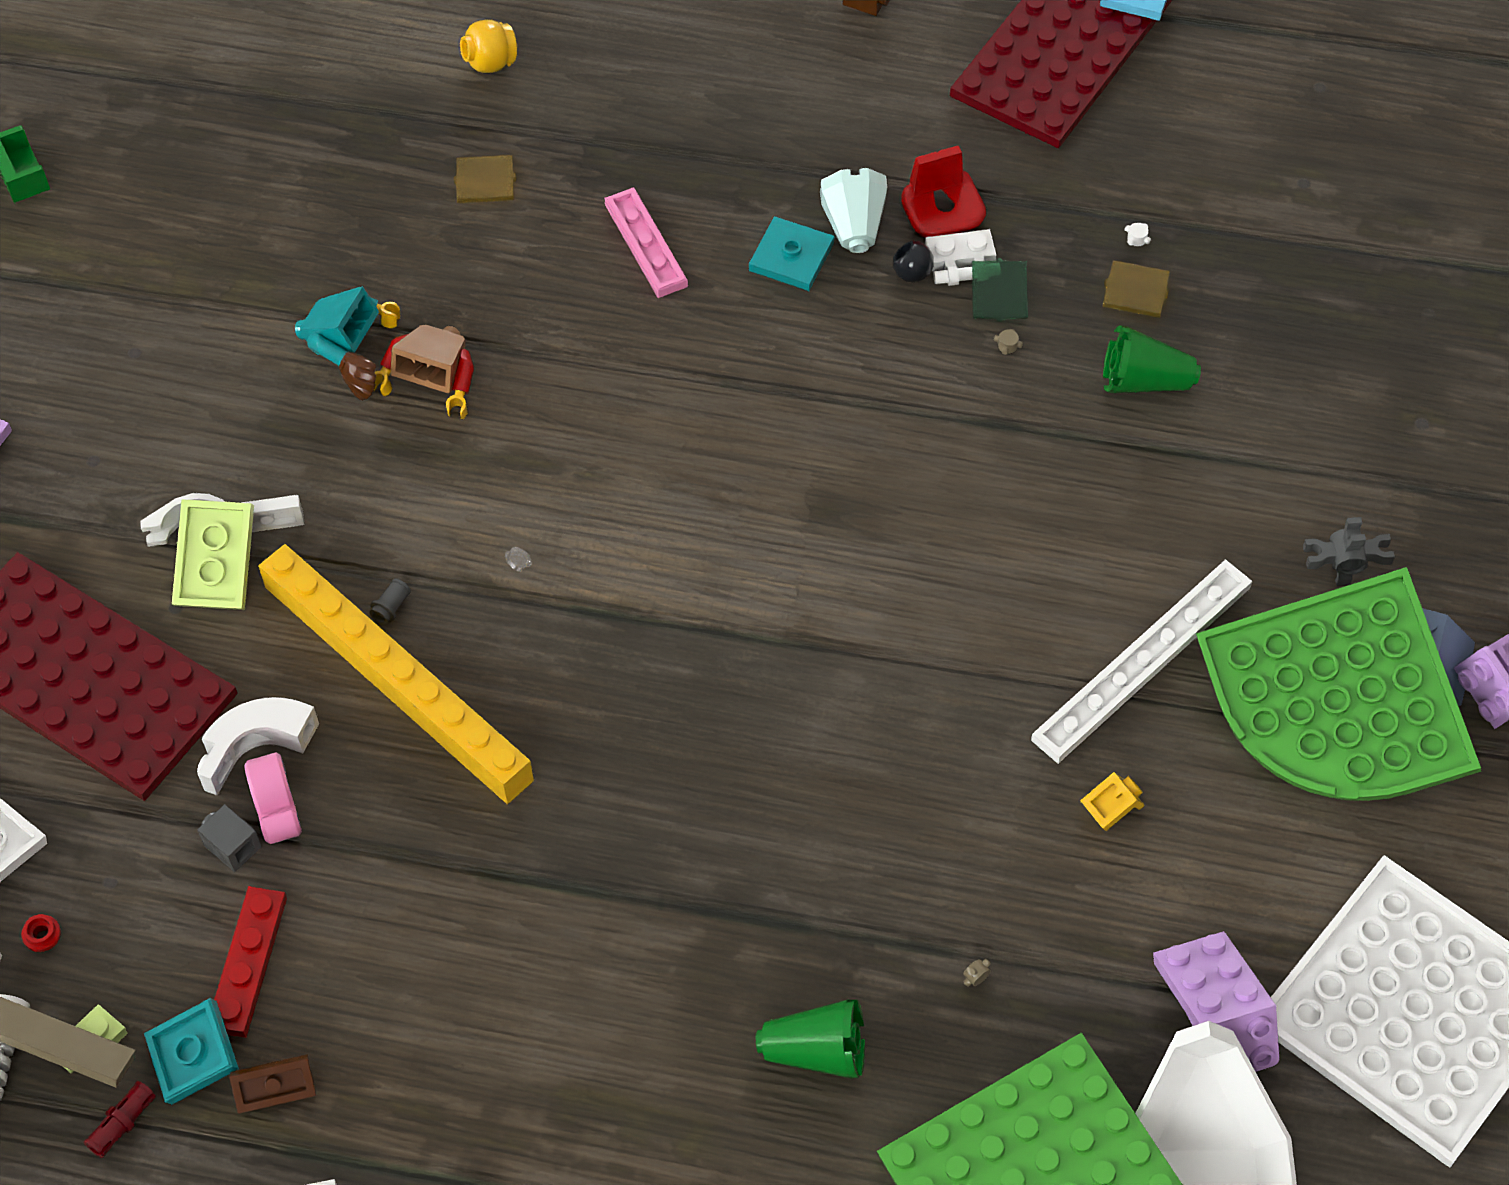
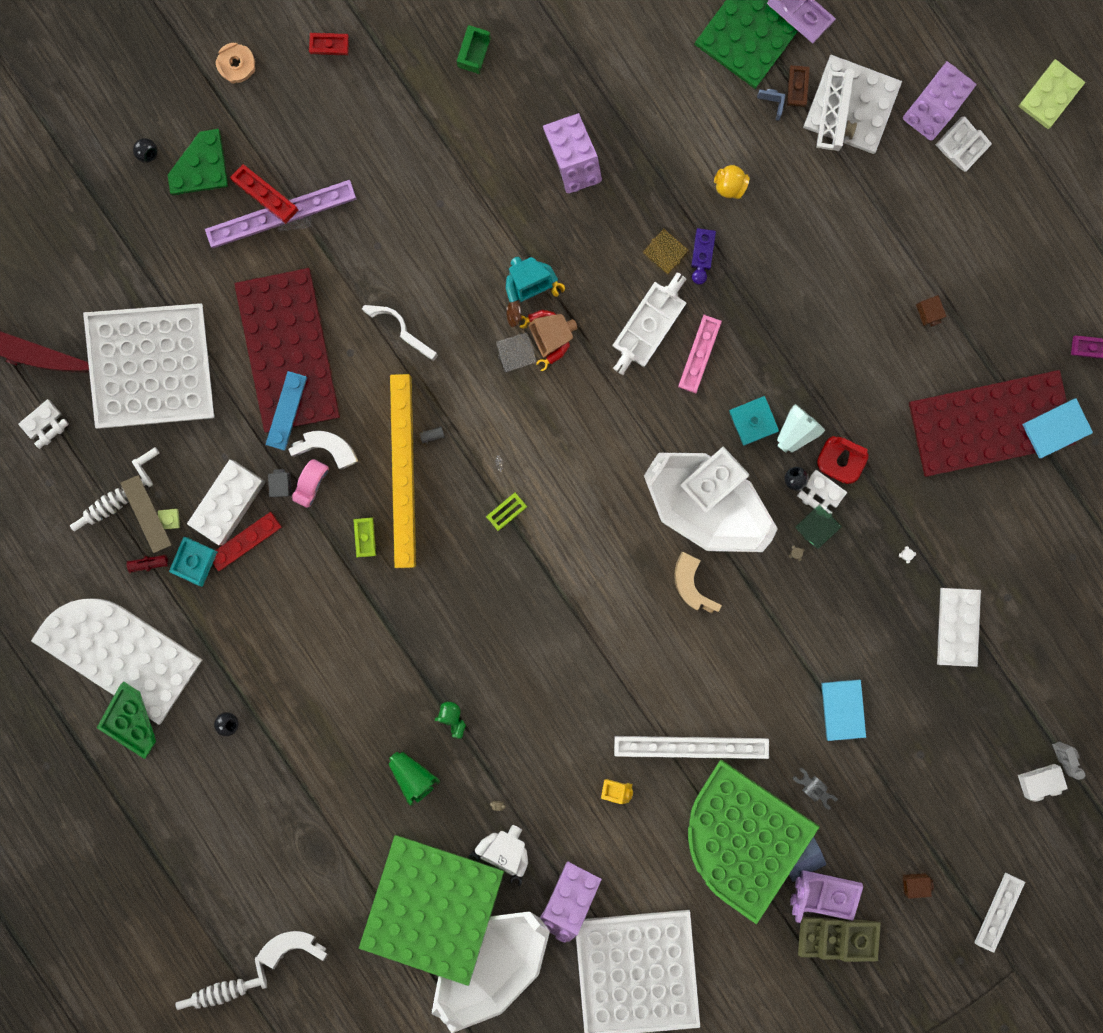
camera: 45 degrees right, 30 degrees up
(37, 924) = (175, 457): red plate -> none
(149, 734) = (286, 410): none -> dark azure plate
(169, 927) = (226, 502): none -> white brick
(213, 554) = (379, 348): yellowish green plate -> none
(266, 157) = (573, 153): none -> lavender bracket
(272, 1083) = (210, 603): reddish brown plate -> none
(407, 425) = (516, 352): none -> clear piece
(422, 800) = (364, 537): none -> lime plate
(534, 144) = (702, 254): none -> dark purple plate
(547, 257) = (649, 324): none -> white plate
(585, 631) = (494, 522): none -> lime tile
(784, 916) = (449, 715): none -> green piece
(815, 336) = (714, 479): none -> white plate
(840, 366) = (733, 524): none -> white panel
(923, 486) = (684, 582): none -> tan arch
(1055, 1011) = (504, 852): none -> white torso
(1136, 288) = (877, 579): clear yellow piece -> none
(1147, 365) = (834, 624): green cone -> none
(1272, 453) = (843, 710): none -> medium azure tile
(1289, 254) = (958, 627): none -> white plate

